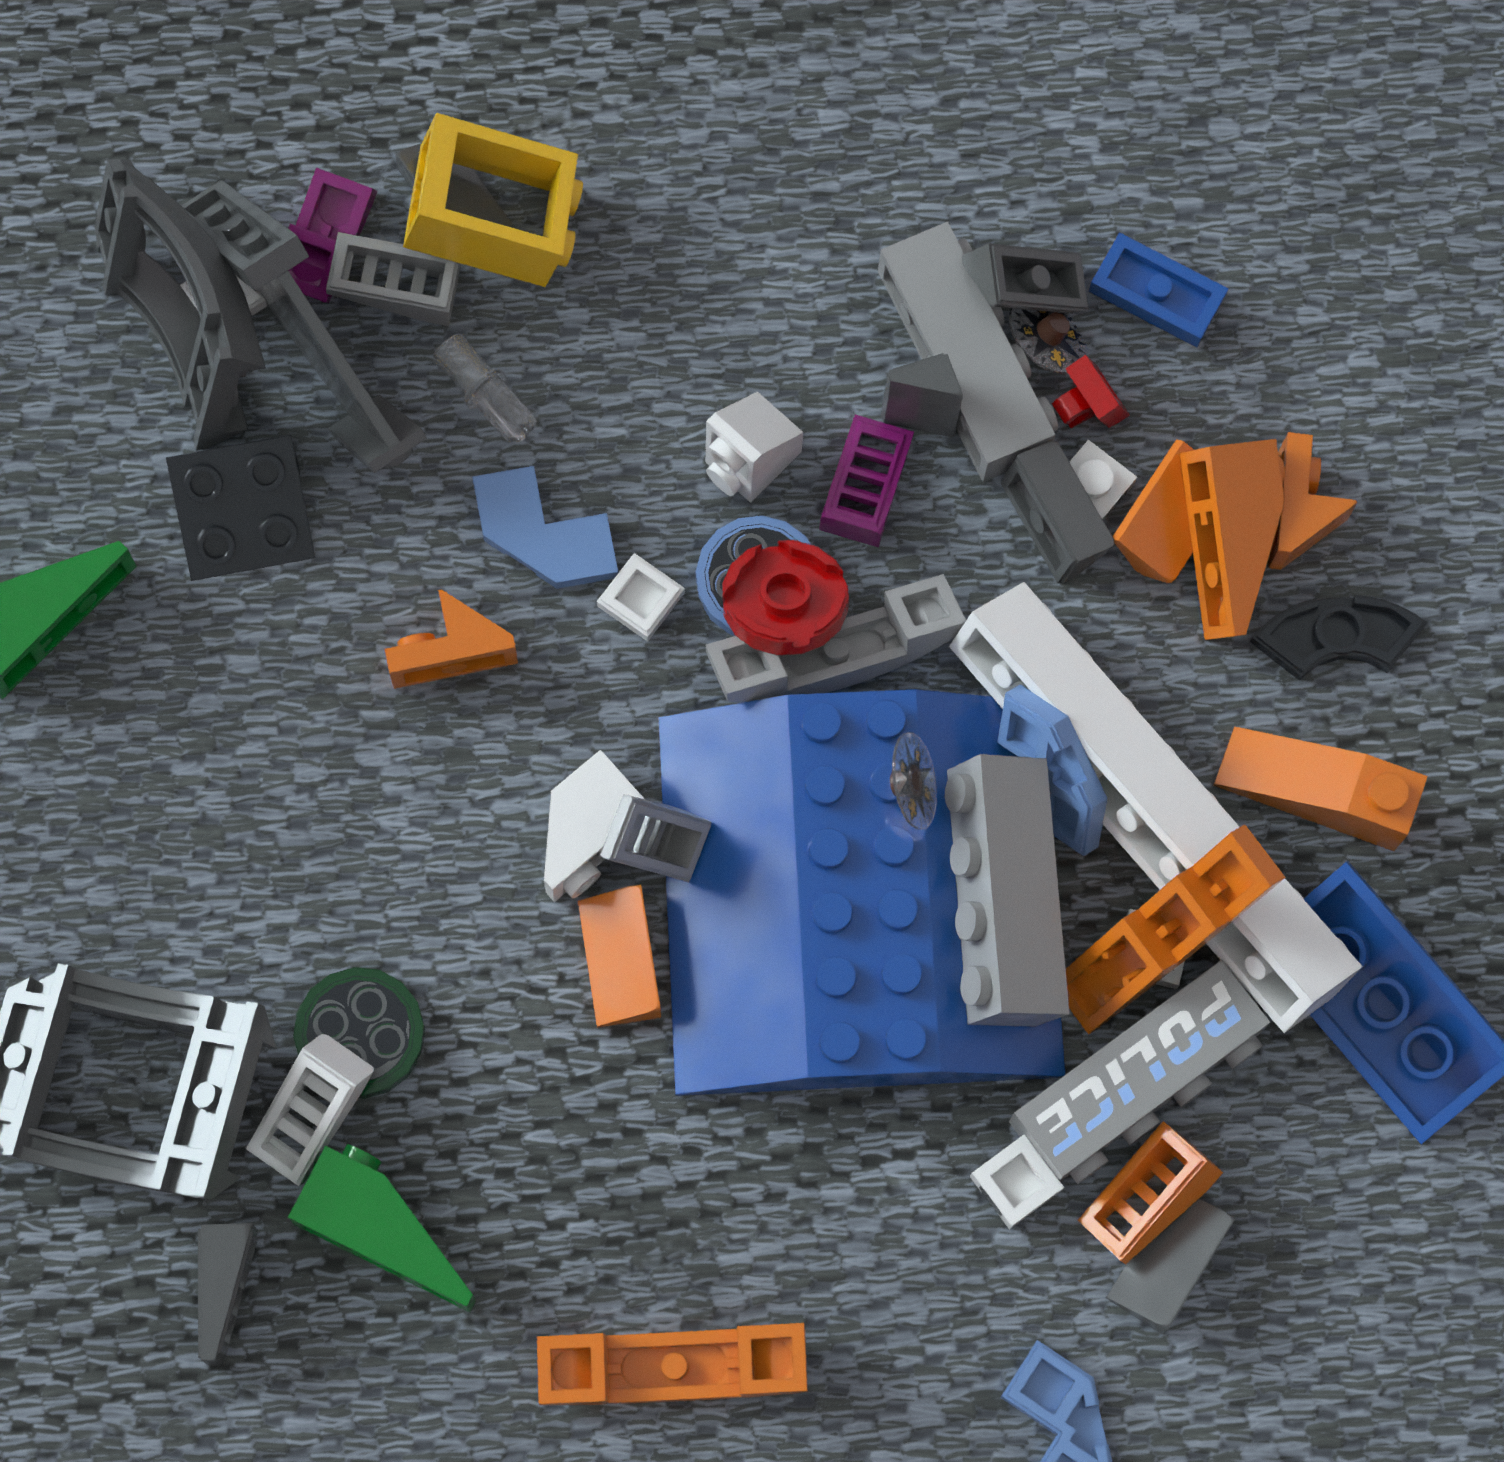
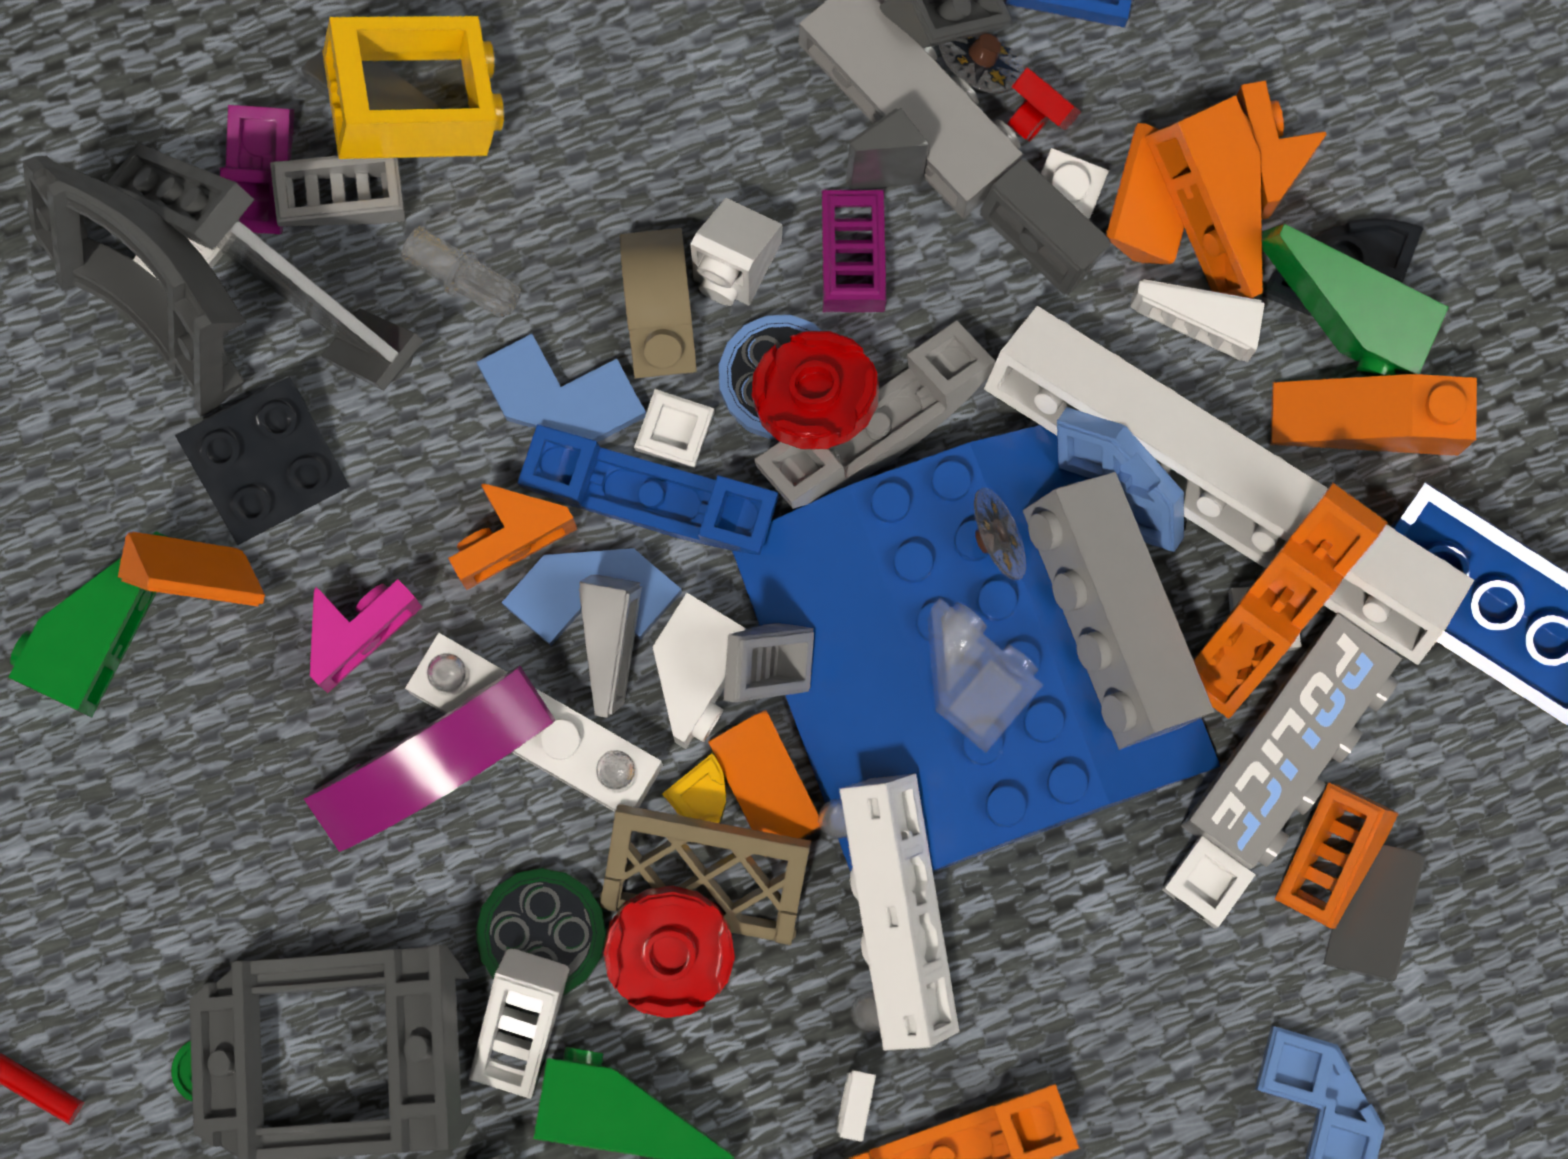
camera: 15 degrees left, 5 degrees up
(138, 585) = (189, 569): none -> orange slope
(261, 703) = (343, 645): none -> dark pink slope
(306, 833) = (431, 761): none -> magenta slope
(416, 835) = (568, 749): none -> white piece
(475, 1085) = (669, 951): none -> red tile
(492, 709) = (550, 597): none -> medium blue tile
(515, 765) = (609, 626): none -> light grey slope
(552, 951) = (699, 792): none -> yellow tile
(576, 1000) = (739, 840): none -> dark tan window
(593, 648) = (647, 493): none -> blue slope
(606, 1285) = (855, 1105): none -> white tile
(661, 472) = (657, 303): none -> dark tan brick
(704, 1112) = (897, 910): none -> white piece
(845, 911) = (973, 679): none -> clear slope
(1188, 643) = (1209, 317): none -> white slope
(1337, 678) = (1356, 306): none -> slope

